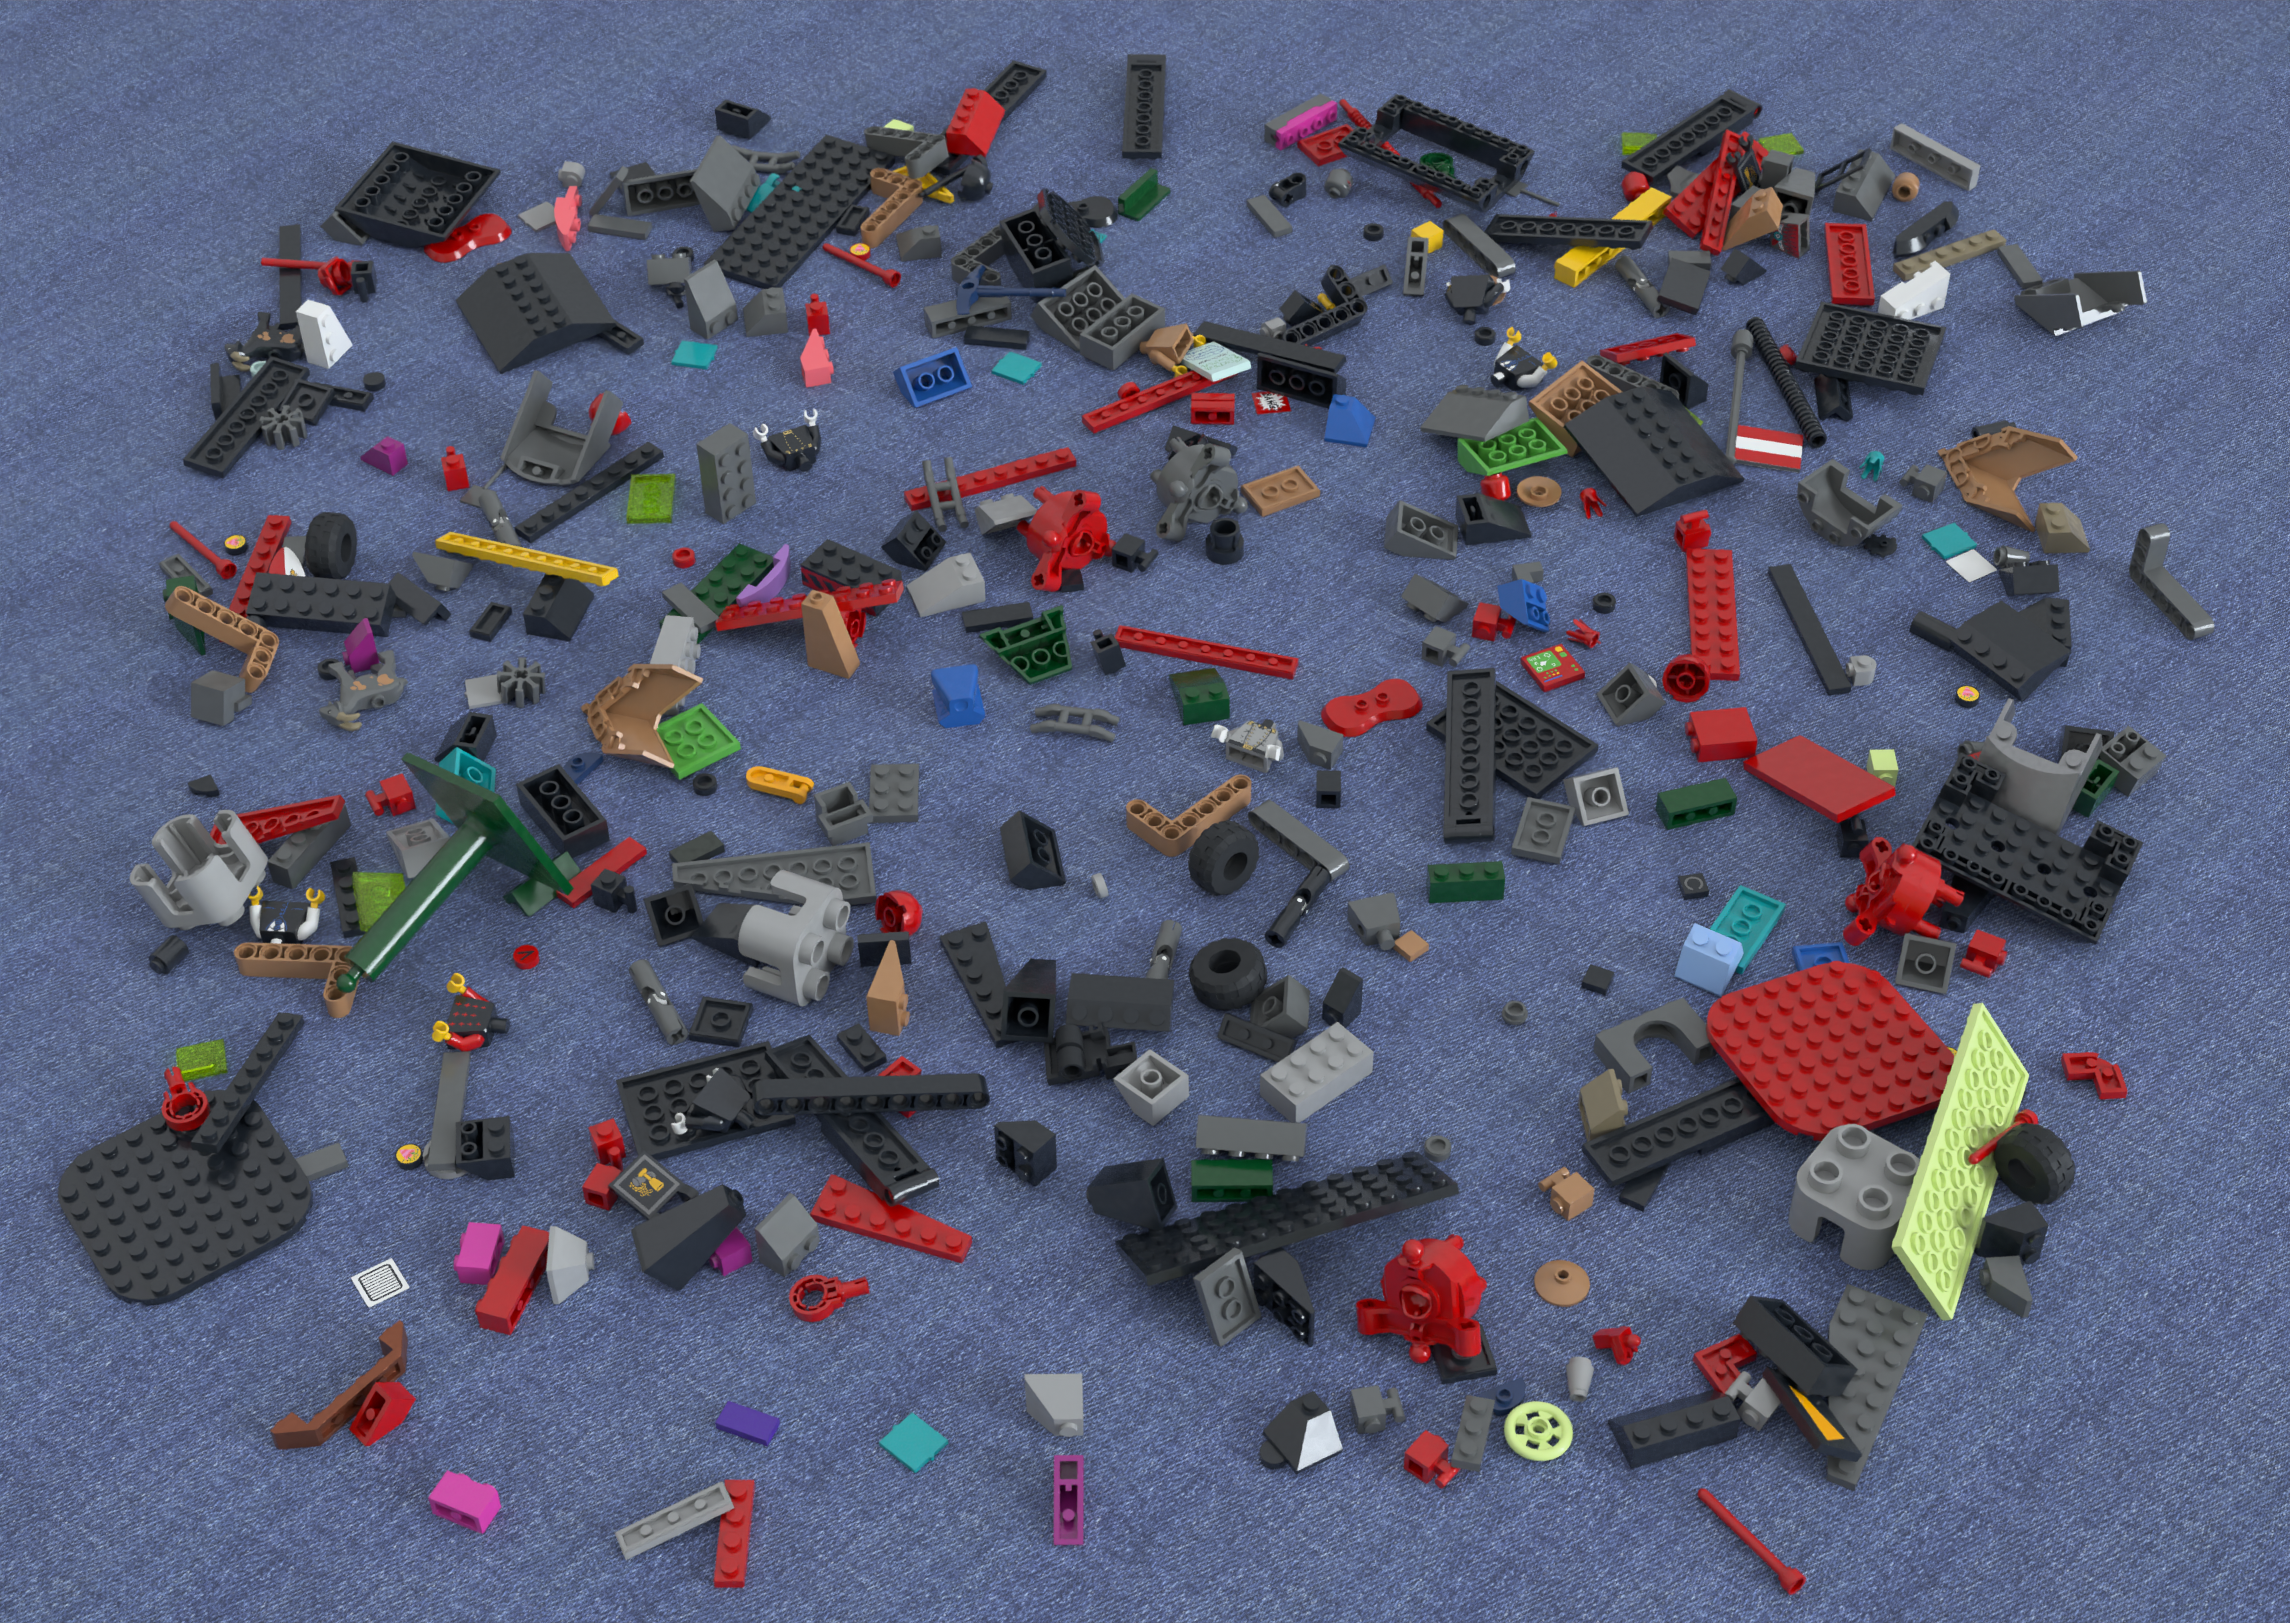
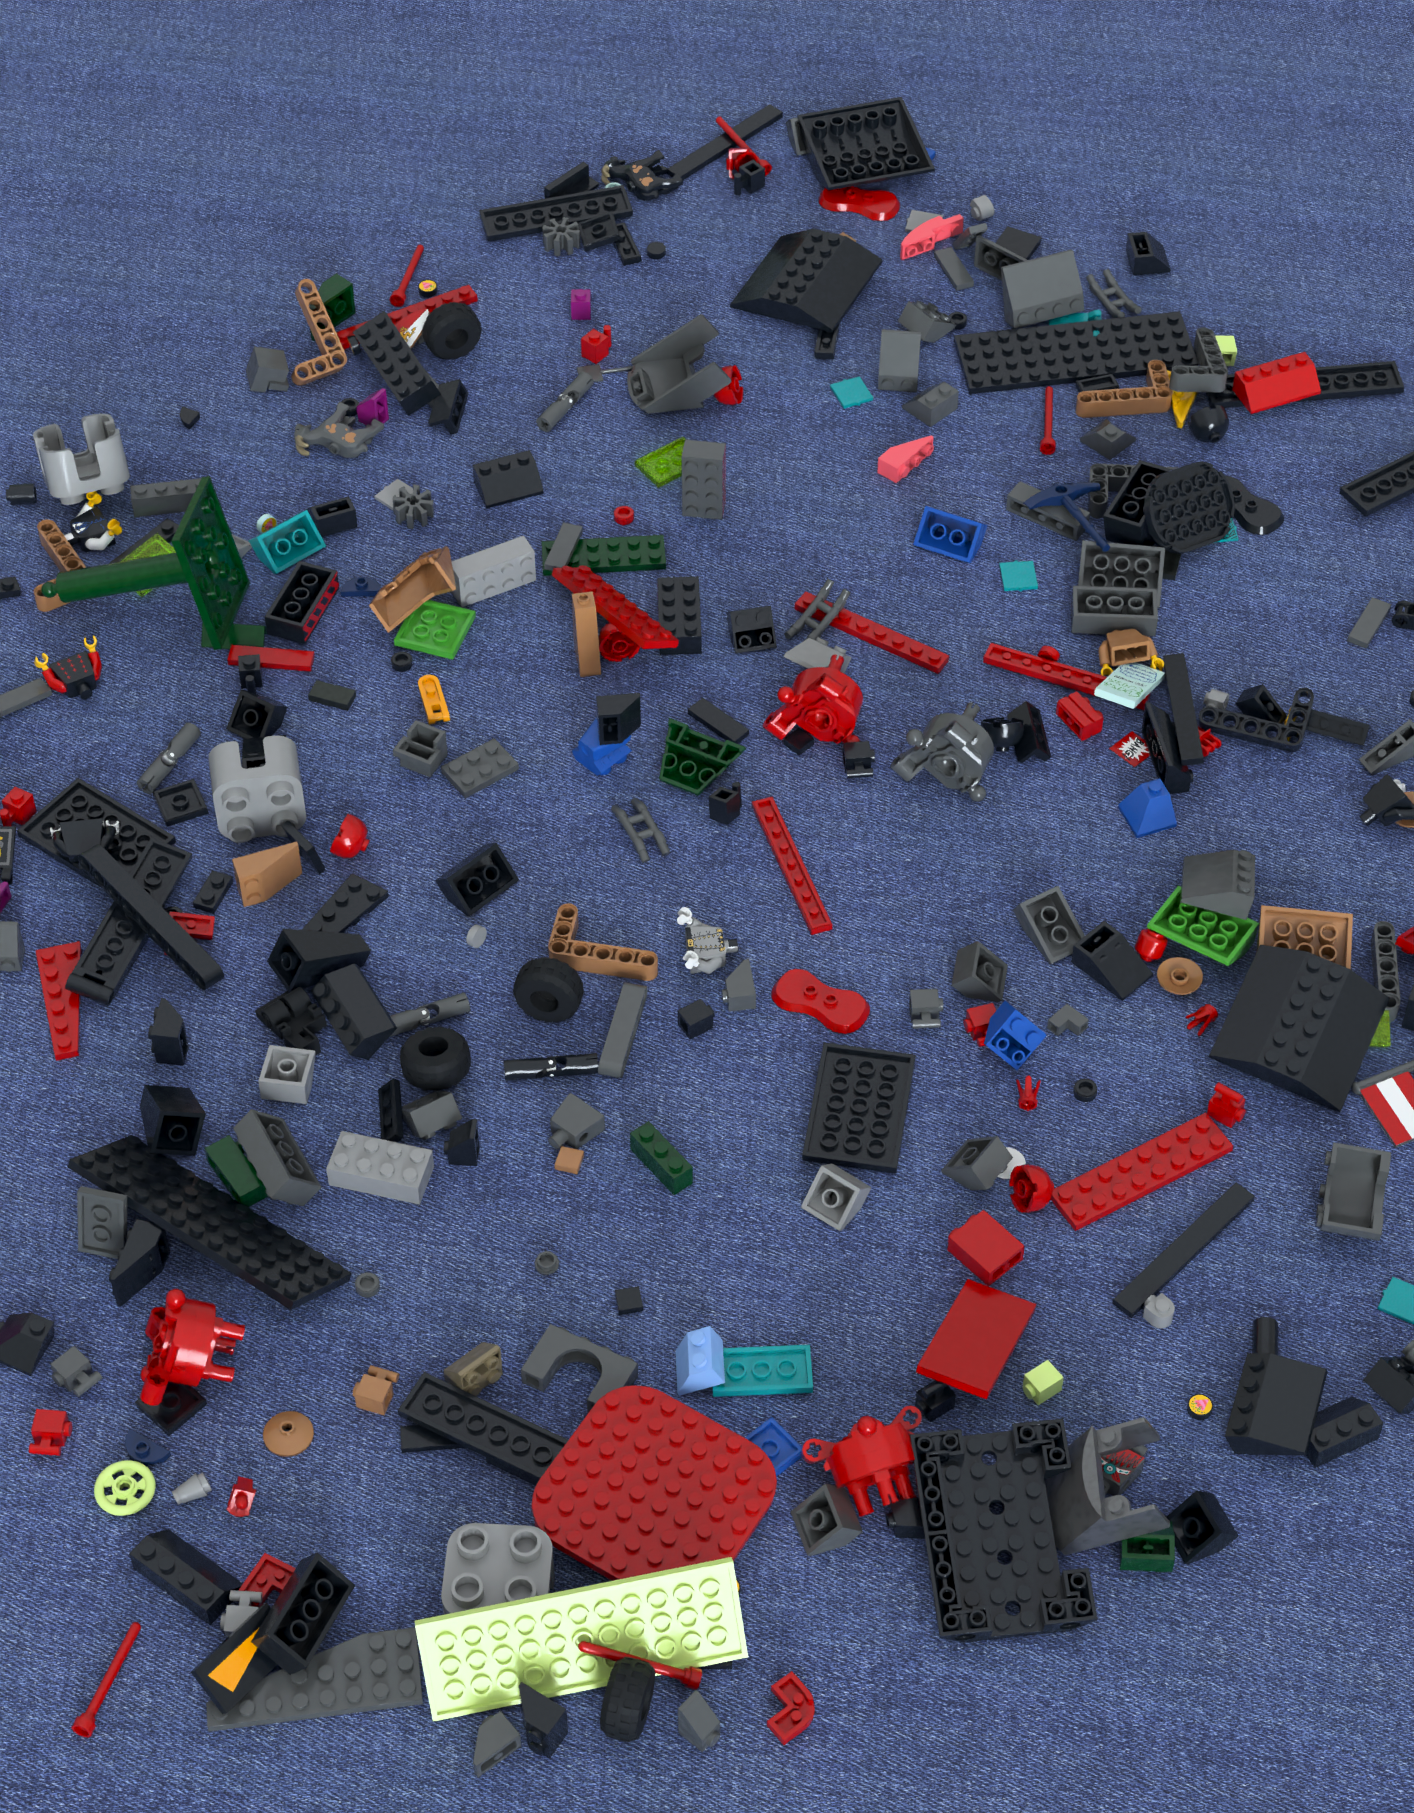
camera: 55 degrees right, 5 degrees up
(178, 567) = (374, 285): dark grey tile -> none
(287, 819) = (163, 465): red wing -> none
(321, 334) = (662, 194): white wedge -> none
(395, 795) = (250, 509): red brick -> none
(423, 796) = (266, 522): none -> tile
(442, 571) = (491, 399): dark grey slope -> none
(490, 621) = (466, 456): black tile -> none
(526, 957) = (161, 667): red tile -> none
(527, 558) = (525, 433): yellow plate -> none
(588, 492) = (647, 426): black plate -> none
(750, 876) = (350, 765): dark grey wing -> none
(772, 583) = (636, 576): medium lavender slope -> none
(793, 447) = (794, 503): black torso -> none
(817, 316) = (953, 430): red brick -> none
(860, 250) = (1062, 411): tile -> none
(948, 586) = (723, 675): light grey slope -> none
(950, 179) = (1237, 415): black piece -> none
(963, 656) = (617, 717): none -> black slope
(996, 337) = (1041, 544): black tile -> none
(1142, 196) = (1307, 532): dark green panel -> none
(1200, 696) = (735, 885): dark green slope -> none
(1224, 542) = (922, 807): black piece -> none
(1280, 491) = (1025, 811): medium nougat tile -> none
(1470, 757) = (795, 1088): black hinge -> none
(1472, 1433) = (86, 1444): dark grey plate -> none
(1485, 336) = (1356, 841): black tile -> none
(1517, 367) = (1329, 879): torso -> none
(1543, 830) = (767, 1181): dark grey plate -> none
(1552, 667) = (971, 1094): red tile -> none
(1693, 886) = (789, 1314): black tile -> none
(1696, 803) = (884, 1269): dark green brick -> none
(1880, 545) = (1347, 1251): black piece -> none
(1971, 565) = (1388, 1333): white sticker -> none
(1984, 954) = (872, 1560): red brick -> none
(2079, 1134) = (698, 1722): none -> dark grey slope
(2134, 758) = (1209, 1565): dark grey slope -> none

